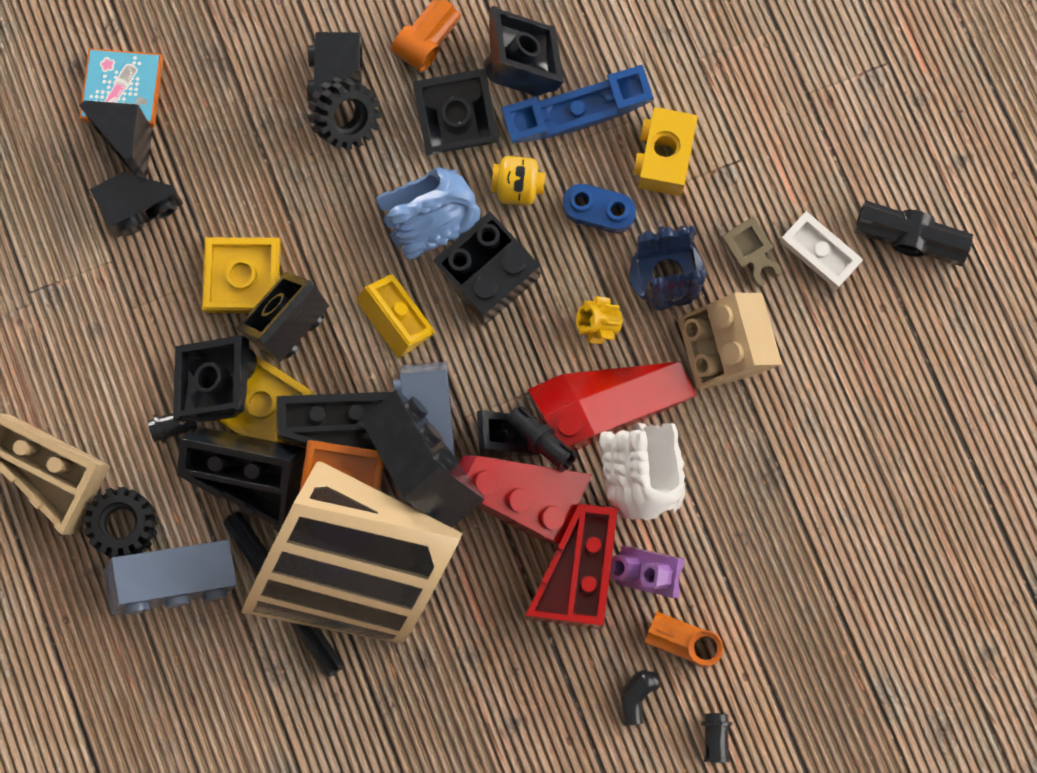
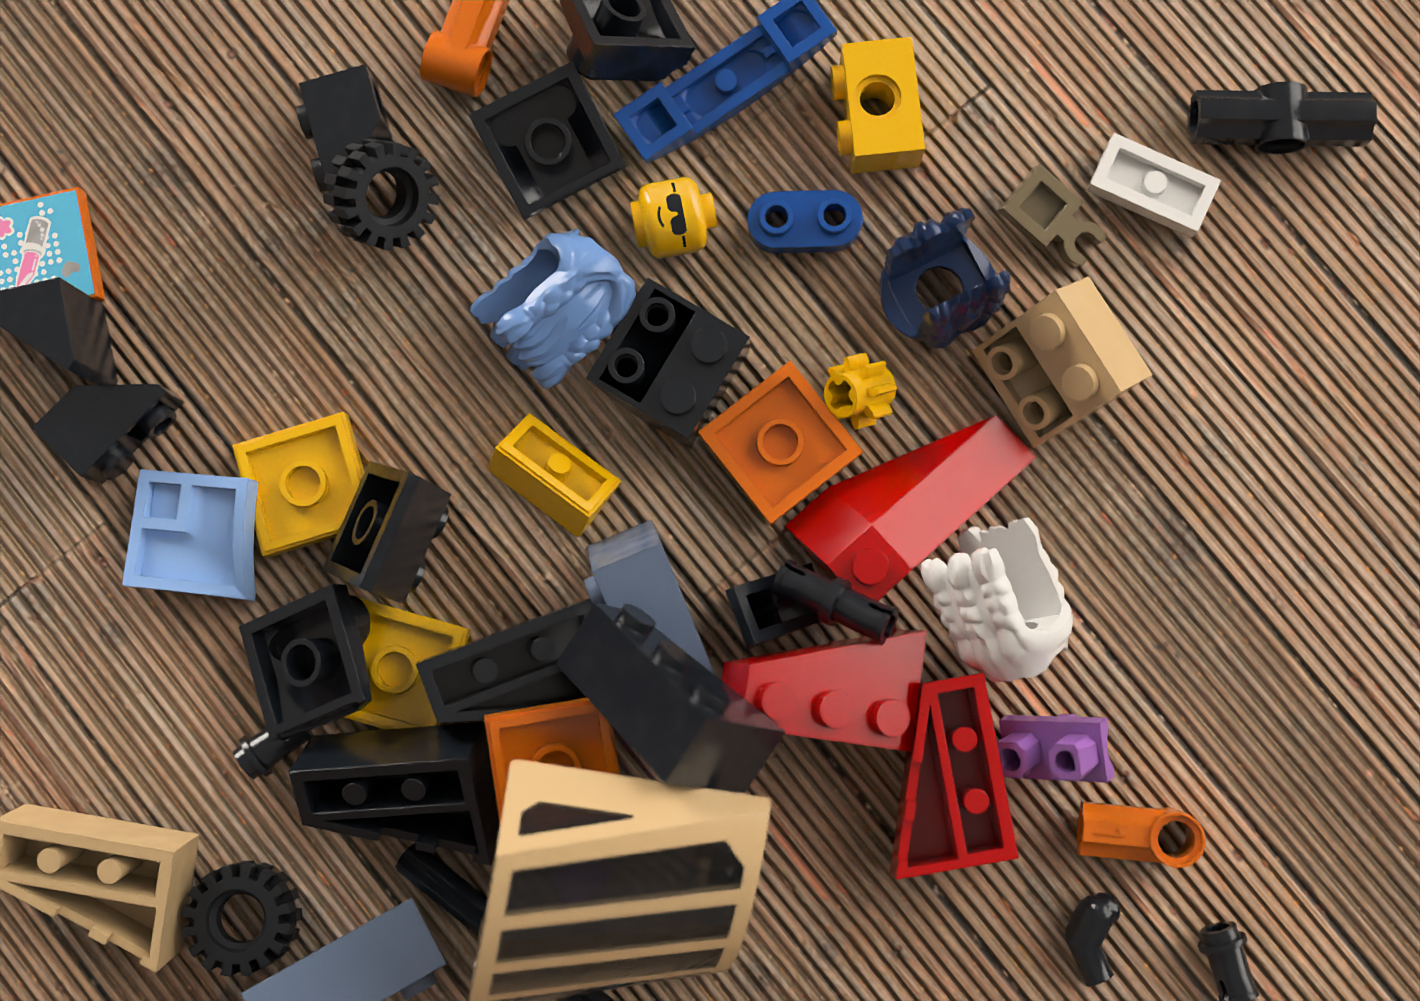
camera: 10 degrees left, 5 degrees up
(164, 284) = (193, 535): none -> light blue plate
(540, 337) = (780, 443): none -> orange plate

